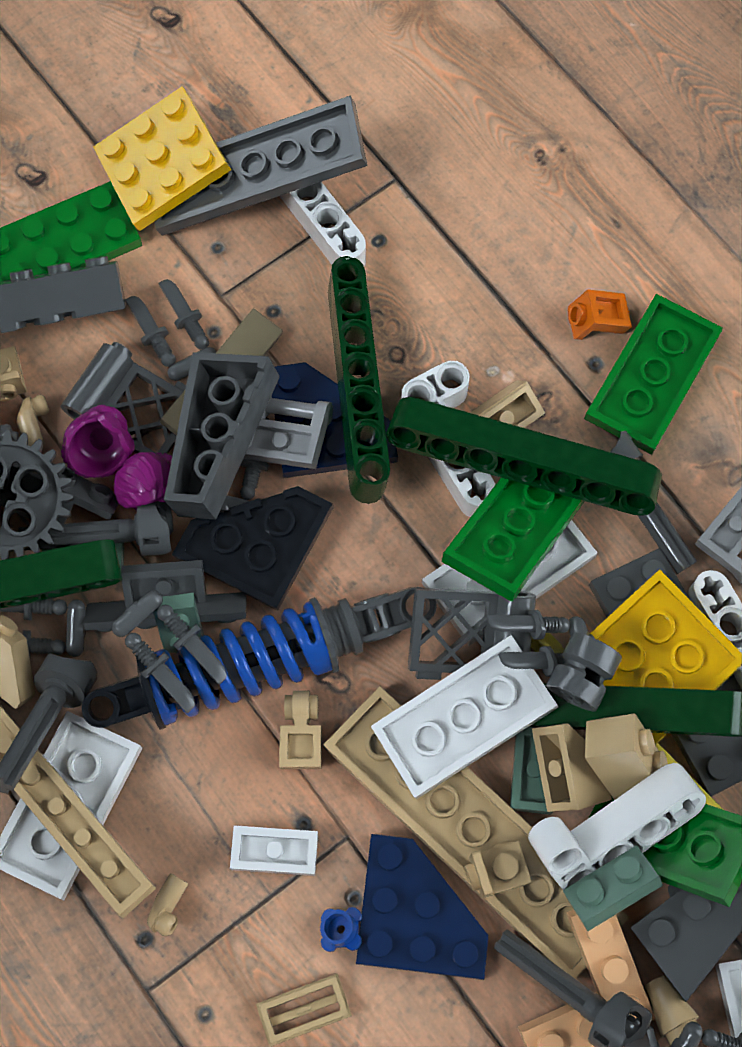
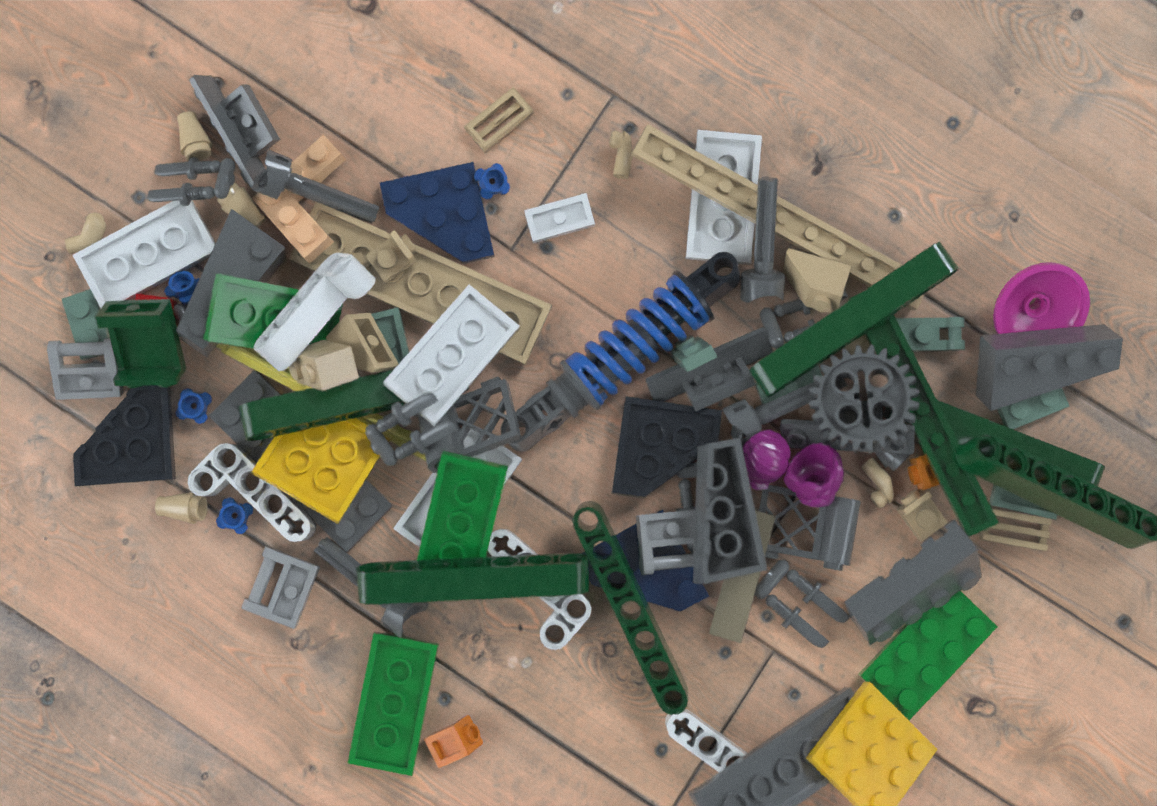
camera: 165 degrees right, 15 degrees up
(156, 665) = (678, 334): dark grey piece -> none
(300, 743) = (569, 301): tan plate -> none
(512, 405) = (505, 625): tan slope -> none
(584, 671) = (370, 410): dark grey wheel -> none
(612, 888) = (304, 264): sand green plate -> none

